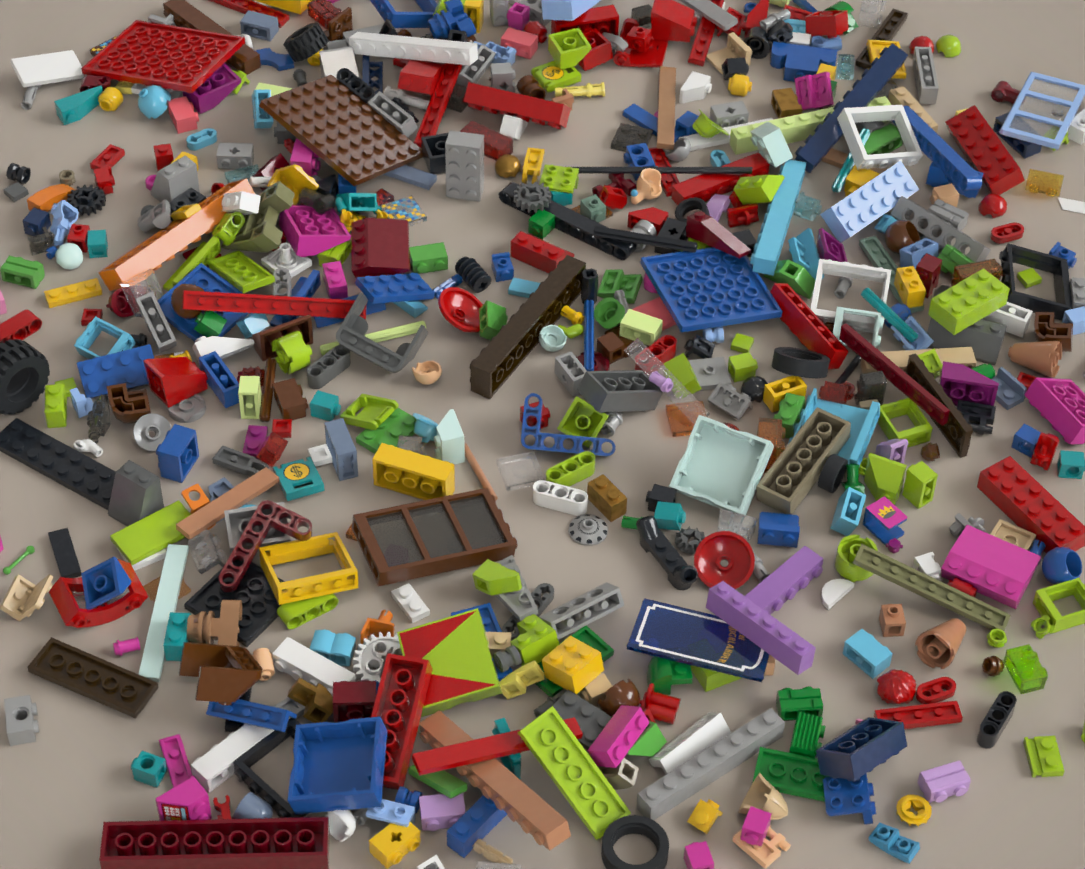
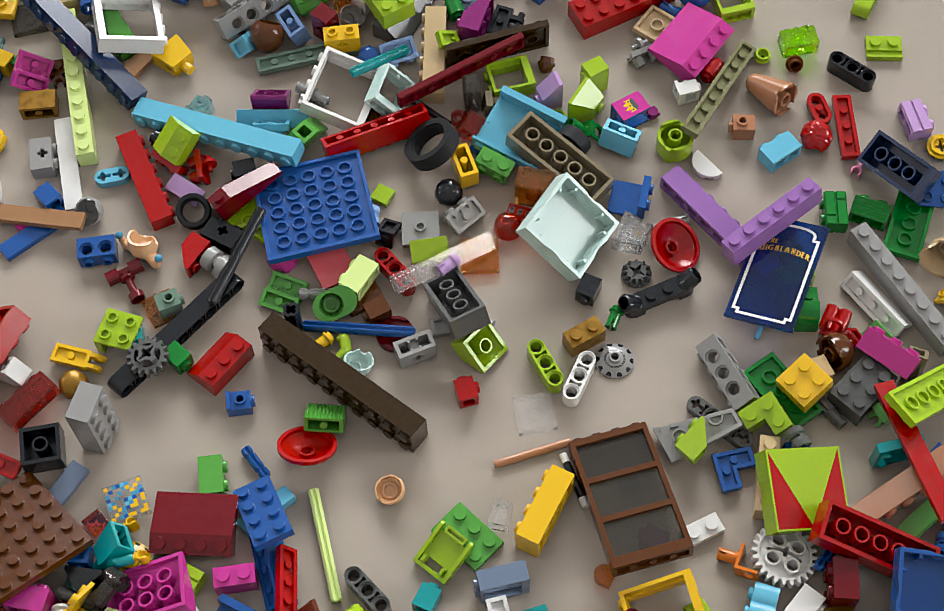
camera: 80 degrees left, 15 degrees up
(352, 337) = (367, 527): dark grey windscreen -> none
(425, 428) = (473, 495): medium azure piece -> none
(450, 440) = (498, 472): light aqua slope -> none
(473, 274) = (248, 432): black piece -> none
(517, 681) = (813, 436): light yellow slope -> none
(522, 287) = (273, 382): medium azure tile -> none
(559, 438) = (502, 388): blue beam -> none
(613, 197) = (152, 282): red brick -> none
(630, 135) = (53, 256): clear smoke plate -> none
(661, 160) = (141, 225): red tile -> none
(665, 170) = (124, 232): black piece -> none
(669, 515) = (613, 284): teal brick -> none
(706, 127) = (64, 176): lime piece -> none
(742, 366) = (419, 197): lime brick -> none
(771, 144) = (113, 120): light aqua brick -> none
(848, 164) = (158, 65): teal axle -> none
(869, 202) = (213, 51): light blue brick -> none
(1037, 623) = (755, 18): lime plate -> none

